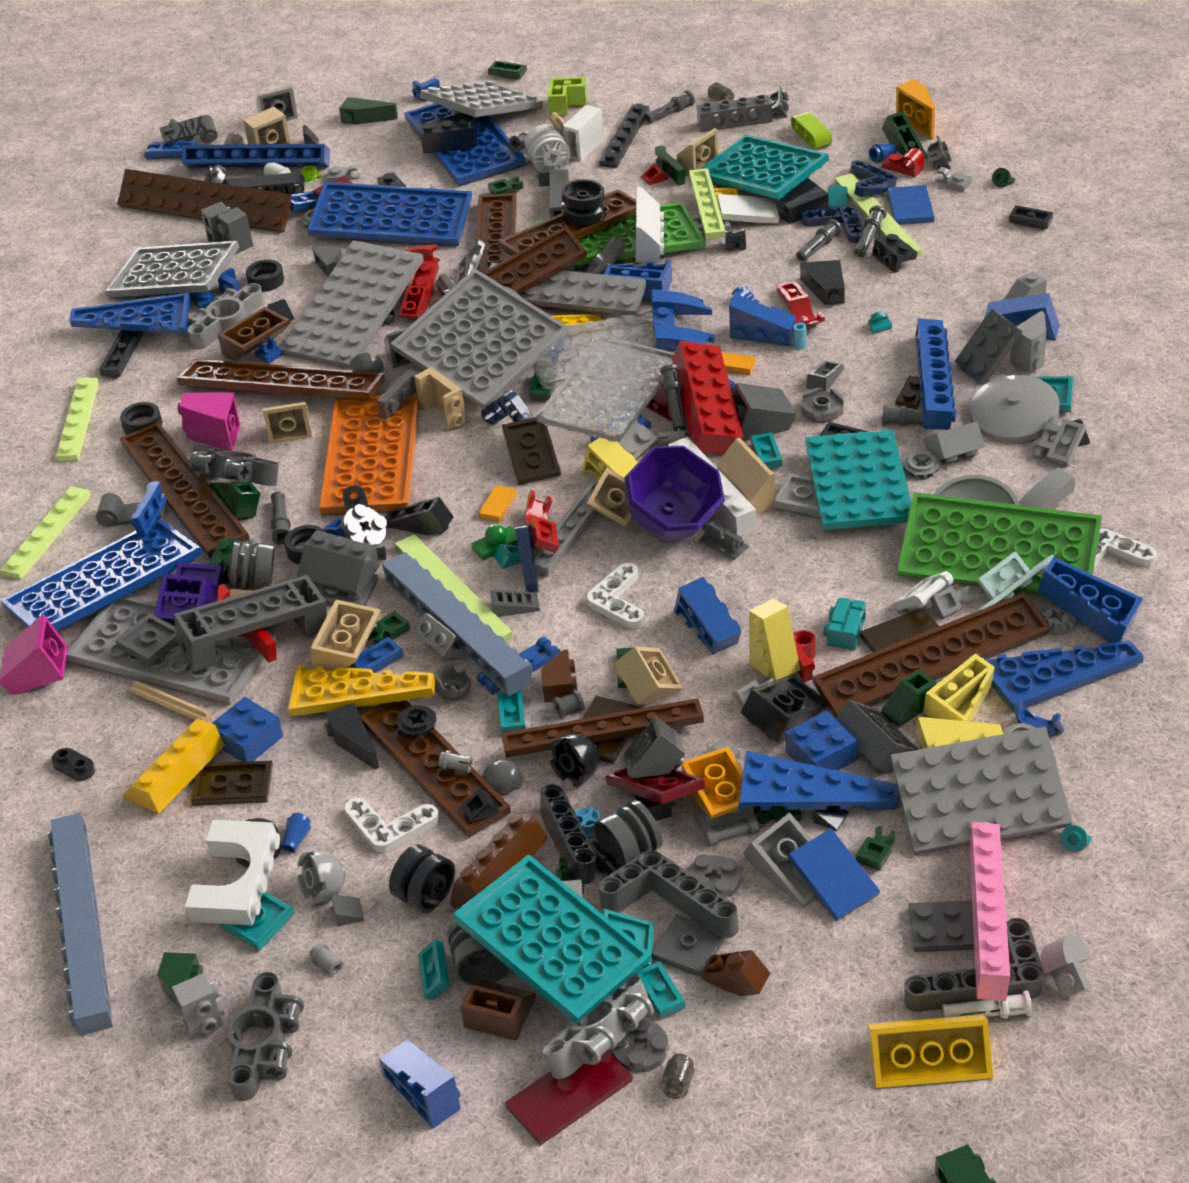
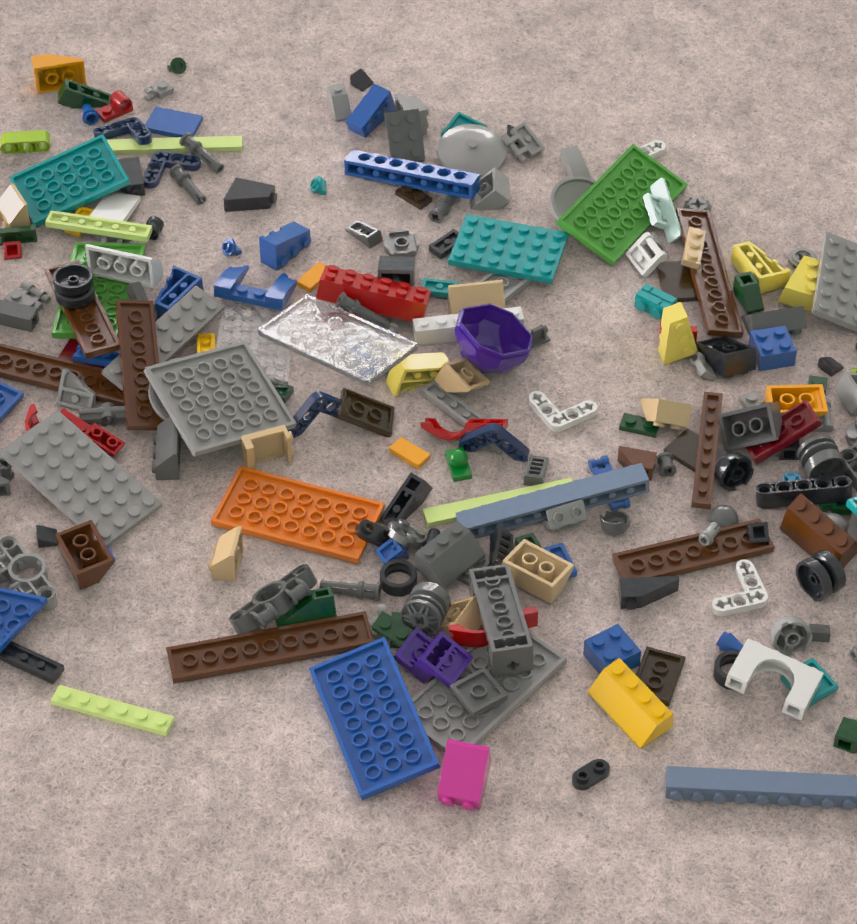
camera: 75 degrees left, 5 degrees up
(45, 533) = (273, 756): yellowish green plate -> none
(114, 512) = (279, 695): dark grey door -> none
(138, 410) = (152, 673): black tyre -> none
(148, 509) = (303, 665): blue plate -> none
(169, 702) = (547, 699): tan axle -> none
(210, 418) = (199, 604): dark pink slope -> none
(281, 379) = (159, 551): reddish brown plate -> none
(327, 690) = (595, 582): yellow wing -> none
(366, 363) = (184, 490): dark grey hair -> none
(378, 595) = (500, 546): none -> black slope
(397, 394) = (244, 473): dark grey plate -> none
(414, 714) = (654, 540): black gear -> none
(507, 555) = (478, 461): teal slope -> none
(511, 712) = (660, 498): teal plate -> none
(707, 615) = (616, 365): blue wedge -> none
(799, 303) = (264, 218): red piece -> none
(799, 336) = (313, 226): medium azure piece -> none
(802, 786) = (814, 363): blue wing -> none
(837, 196) = (134, 152): teal slope -> none
(892, 251) = (237, 150): black bracket -> none
(921, 458) = (505, 212): light grey gear -> none
(939, 154) = (112, 83): dark grey hinge -> none
(954, 624) = (693, 248): none -> tan plate
(1024, 716) = (797, 242): blue helmet -> none
(1031, 217) = (241, 69): black plate -> none
(1053, 671) = (748, 220): blue wing -> none
(1080, 298) = (360, 80): none -> black slope
(1090, 599) = (703, 180): blue wedge -> none

